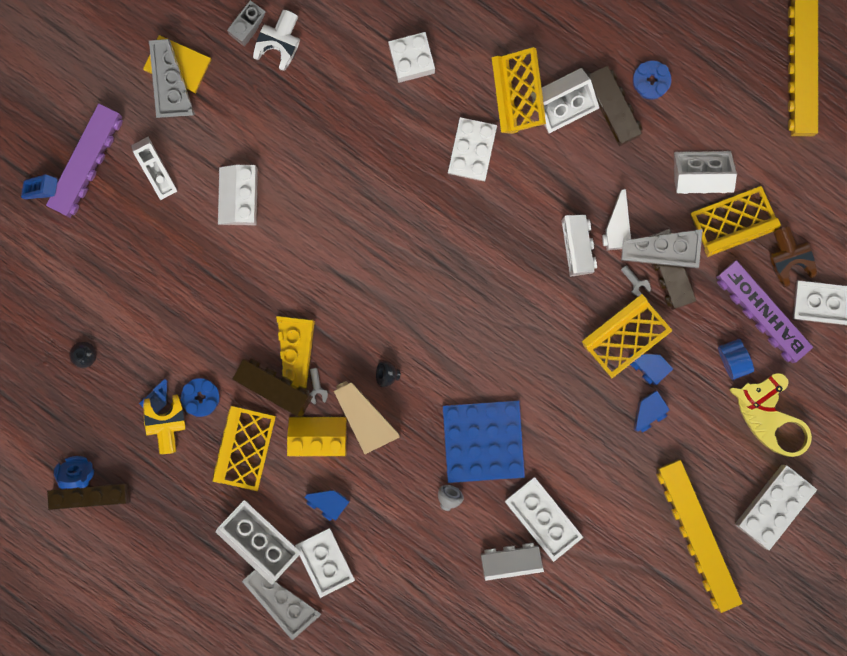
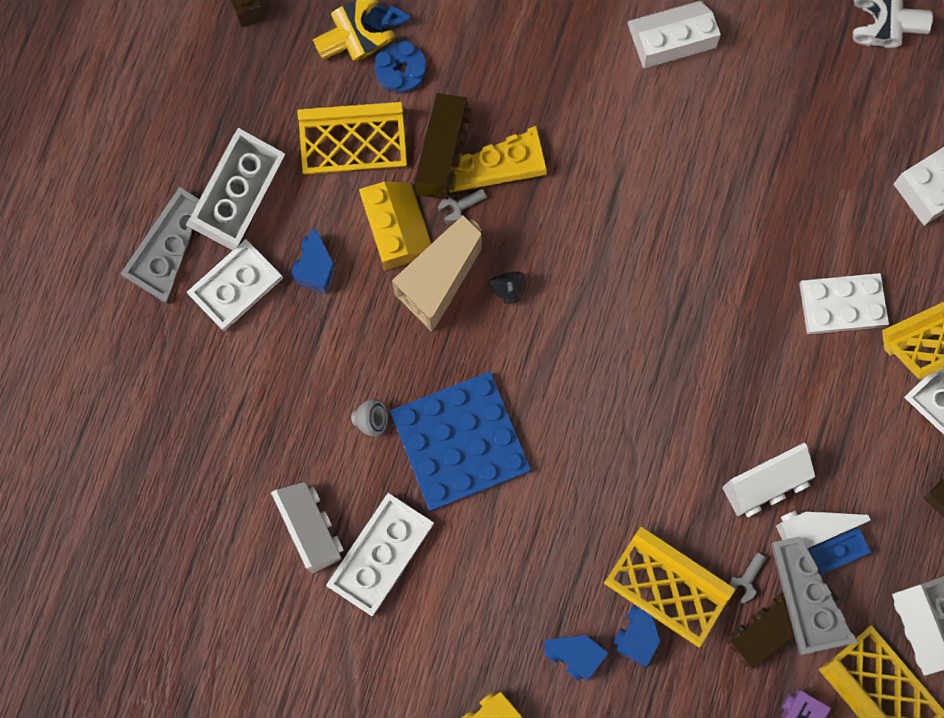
camera: 75 degrees right, 10 degrees down
(638, 216) = (839, 551): none -> blue plate

